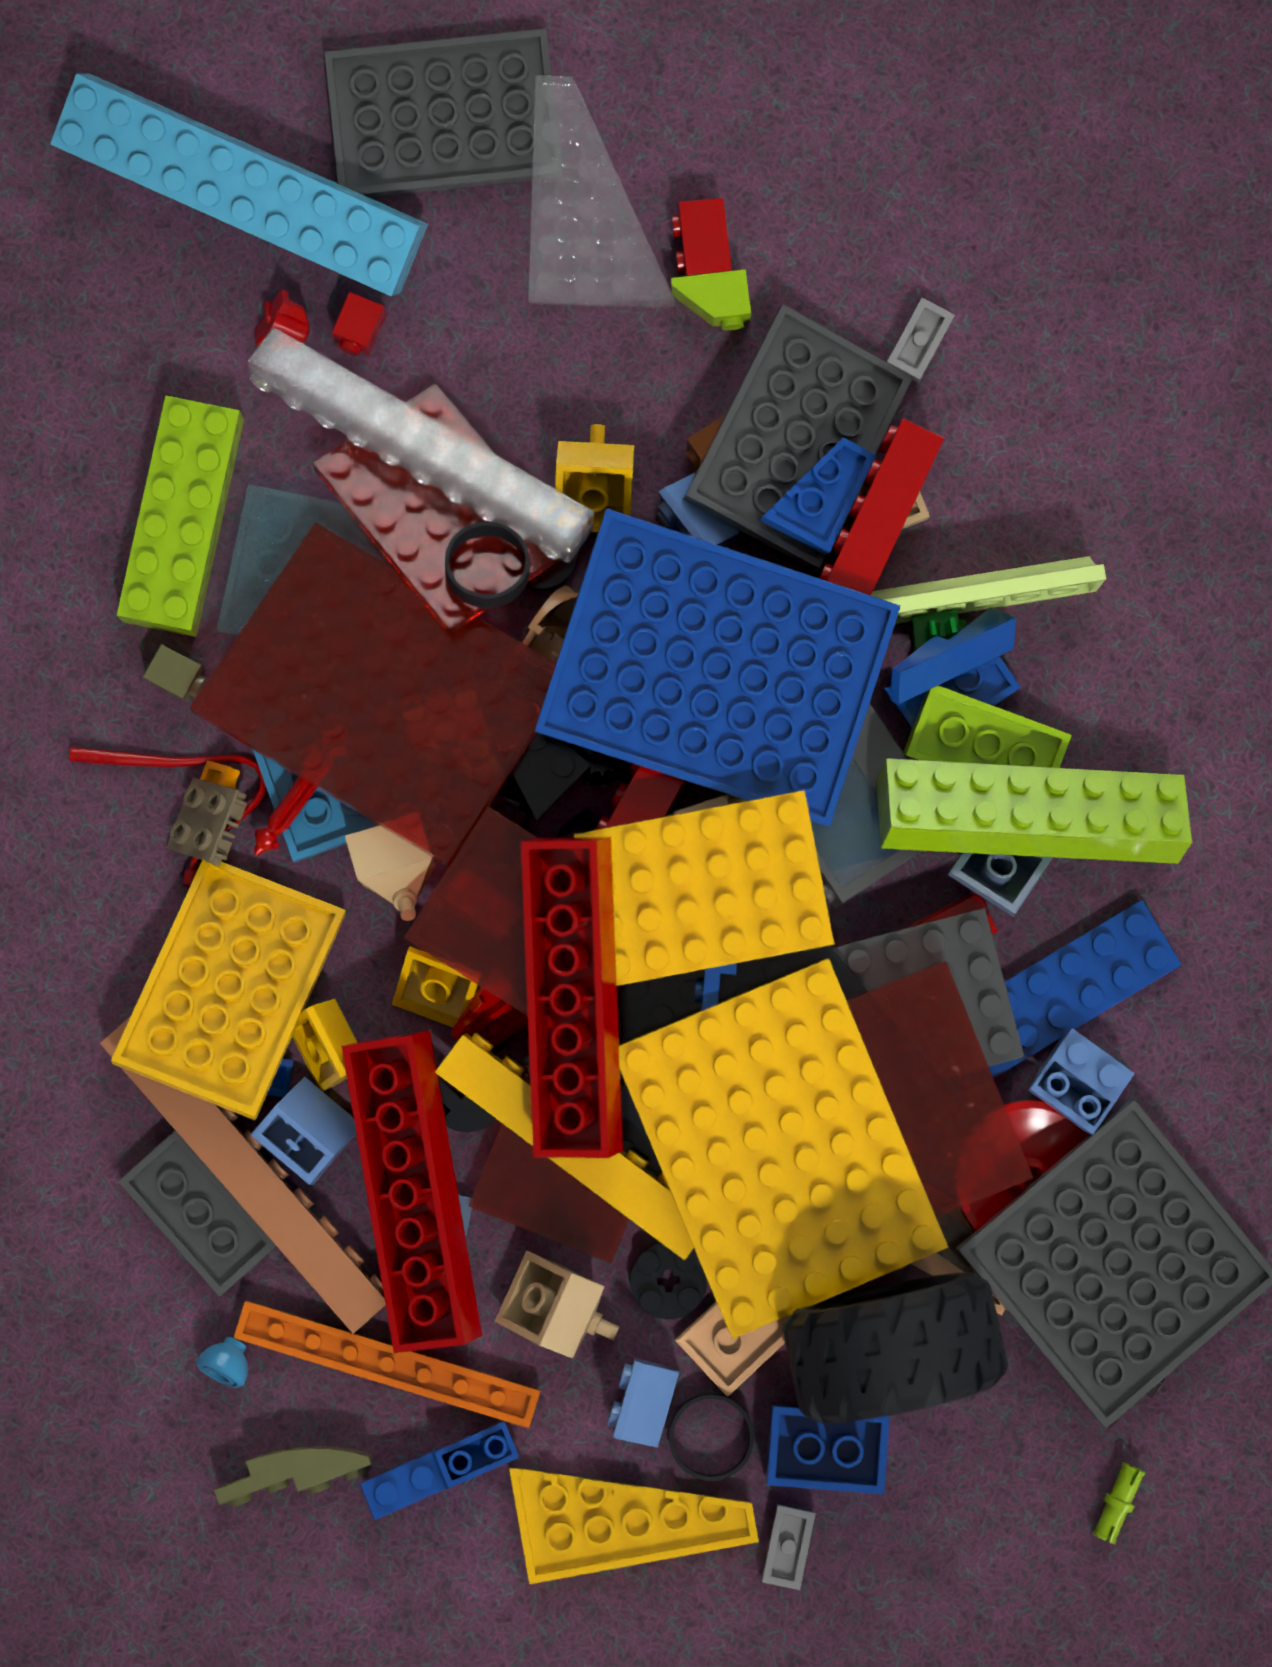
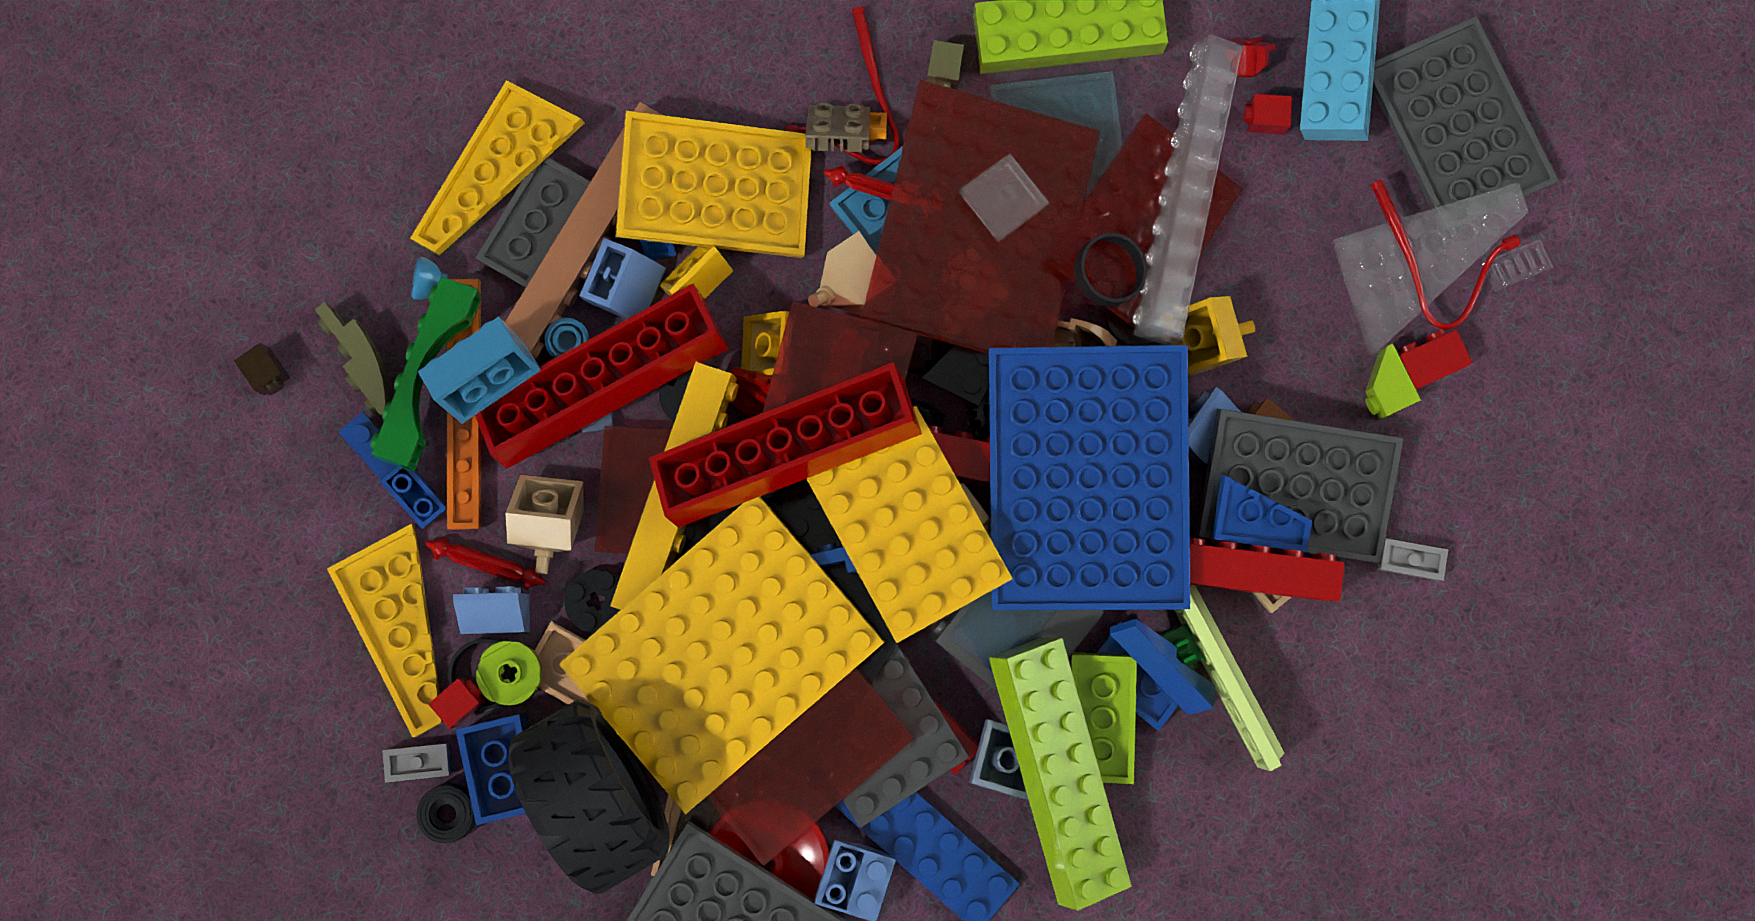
camera: 75 degrees right, 0 degrees up
(102, 1225) = (504, 149): none -> yellow wing
(268, 1590) = (262, 370): none -> dark brown brick
(278, 1344) = (449, 313): none -> green arch
(350, 1218) = (564, 336): none -> dark azure brick
(362, 657) = (1003, 197): none -> clear plate
(362, 1326) = (479, 370): none -> dark azure brick
(521, 228) = (1397, 228): none -> red piece
(582, 1396) = (485, 562): none -> red wheel
(628, 134) = (1496, 275): none -> clear slope
(735, 1473) = (457, 702): none -> red brick
(739, 1416) = (492, 666): none -> lime plate
(835, 1528) = (430, 821): none -> black tyre

